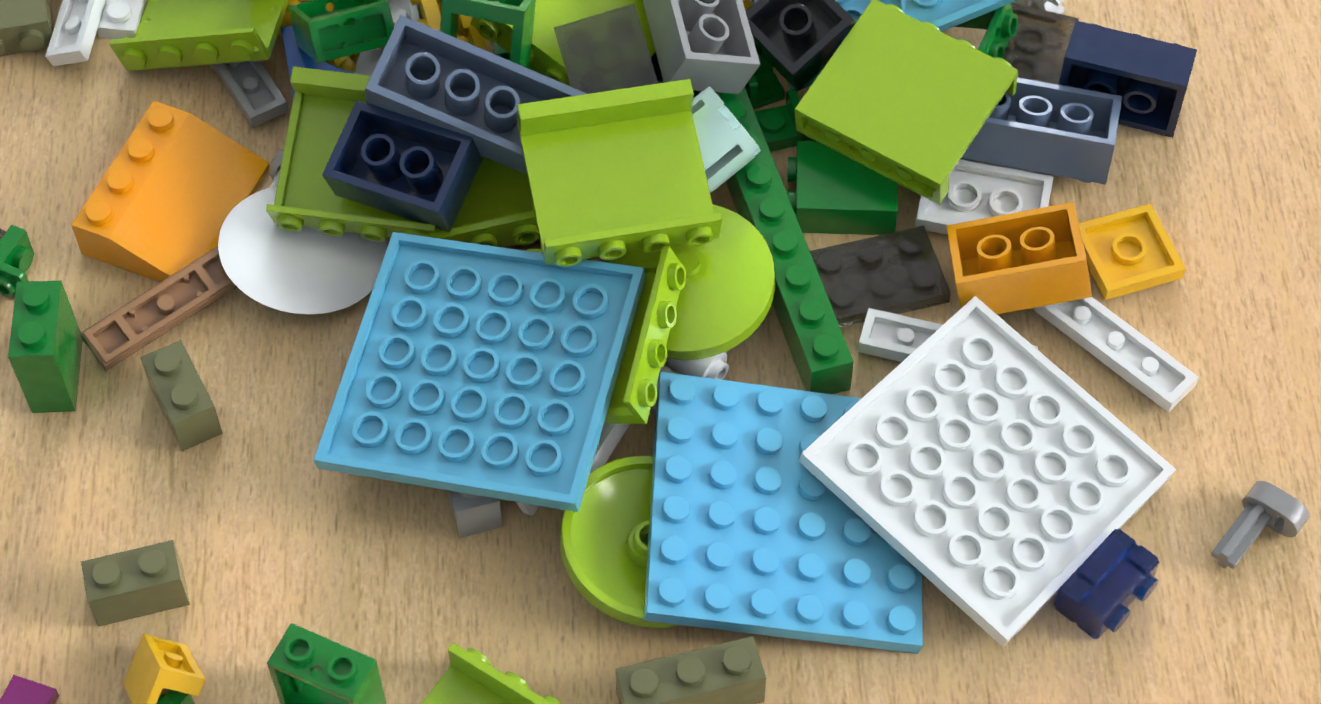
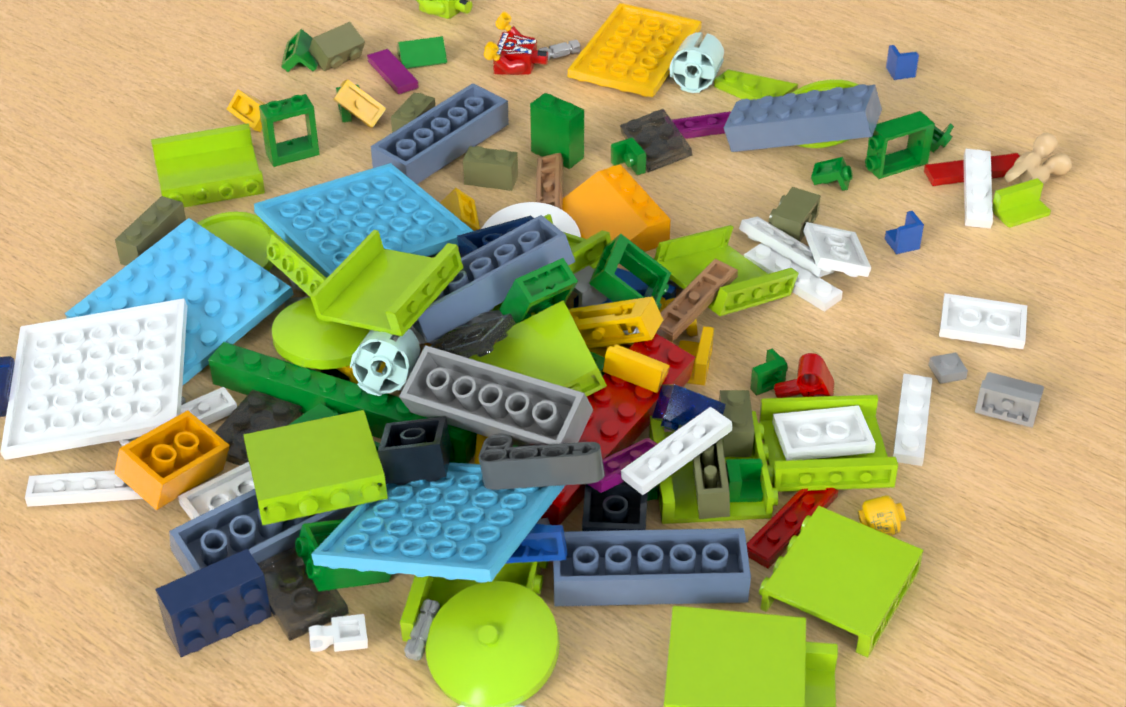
camera: 130 degrees right, 15 degrees down
(147, 497) = (442, 133): none -> sand blue brick
(311, 371) = (462, 207): none -> yellow panel
(1130, 252) = (126, 535): yellow plate -> none

